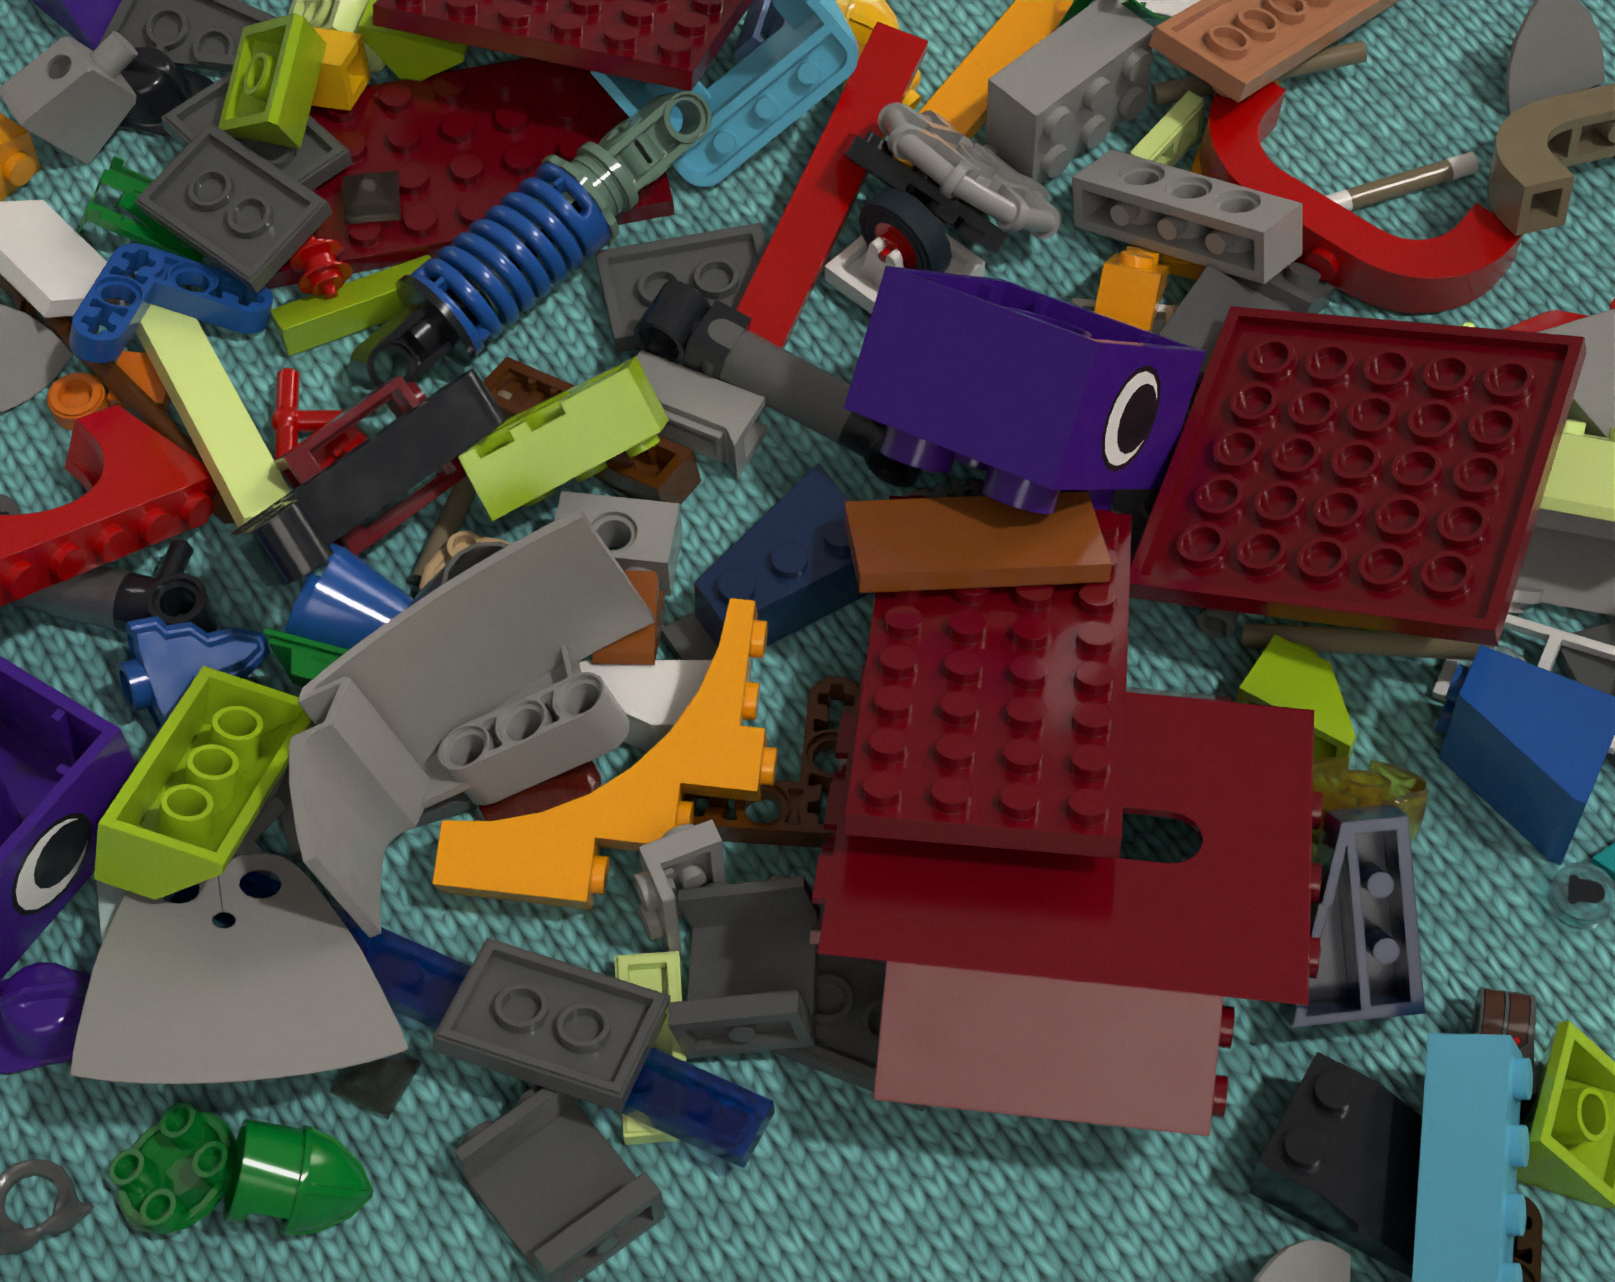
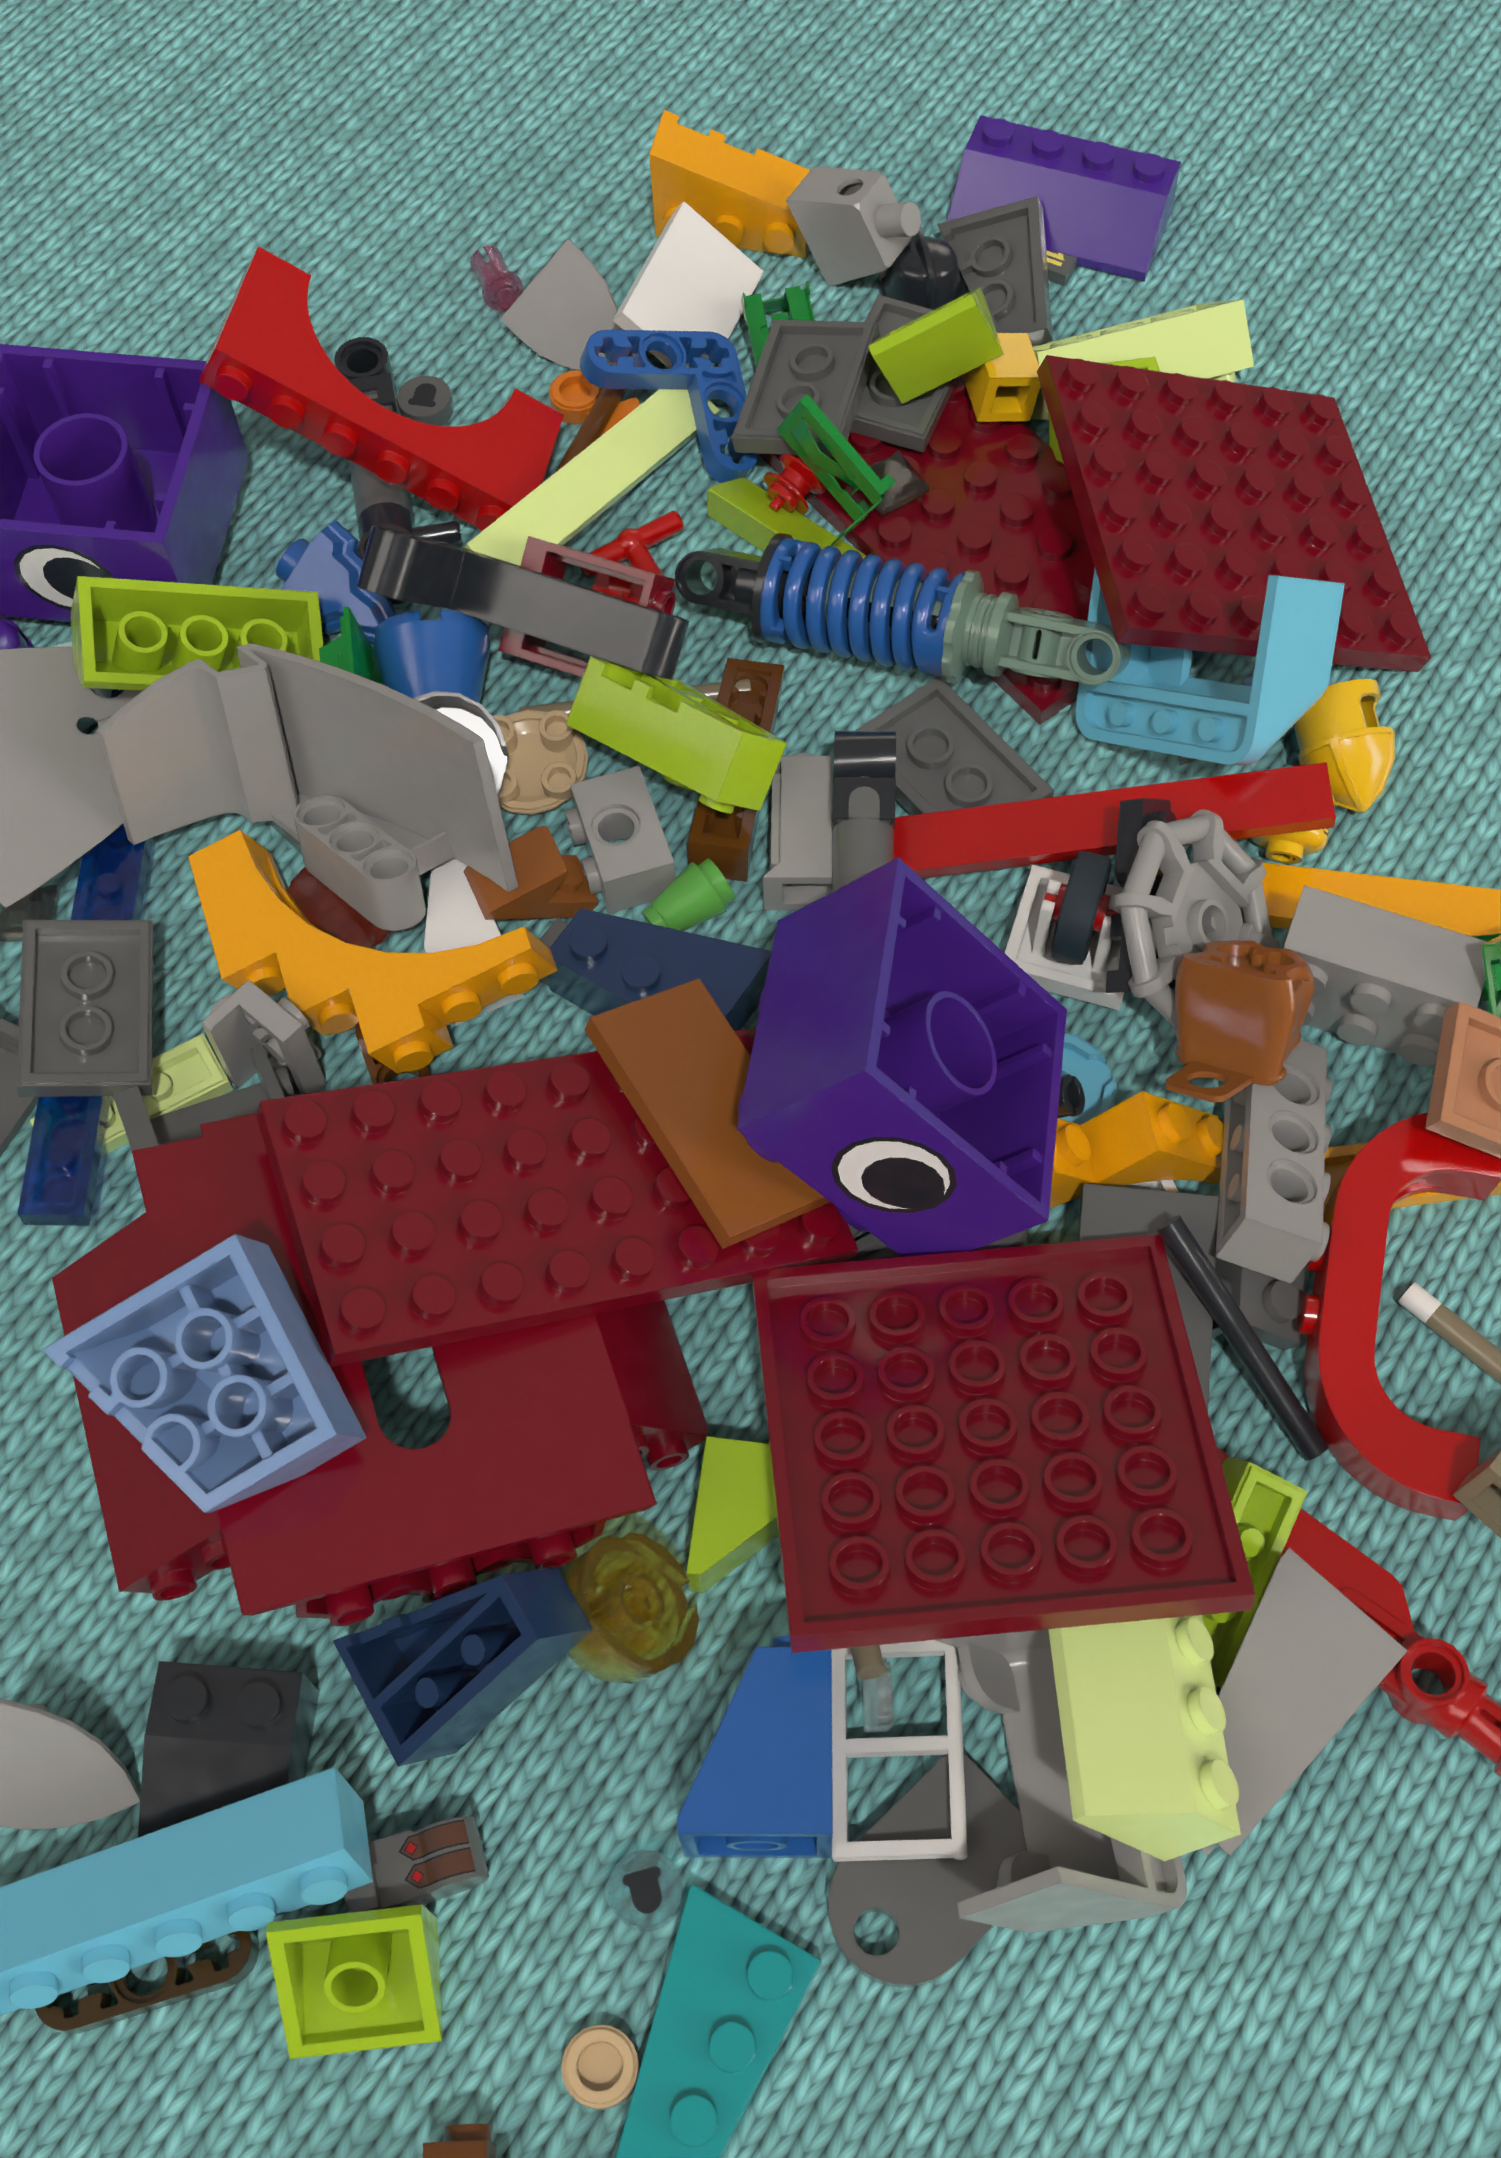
camera: 65 degrees right, 5 degrees up
(334, 224) = (851, 465): none -> green piece
(706, 517) = (691, 898): none -> bright green cone
(1080, 169) = (1238, 1016): none -> dark orange piece
(1101, 928) = (216, 1376): none -> medium blue wedge
(1174, 132) = (1380, 1098): yellowish green tile -> none
(1298, 301) = (1242, 1338): none -> black bar

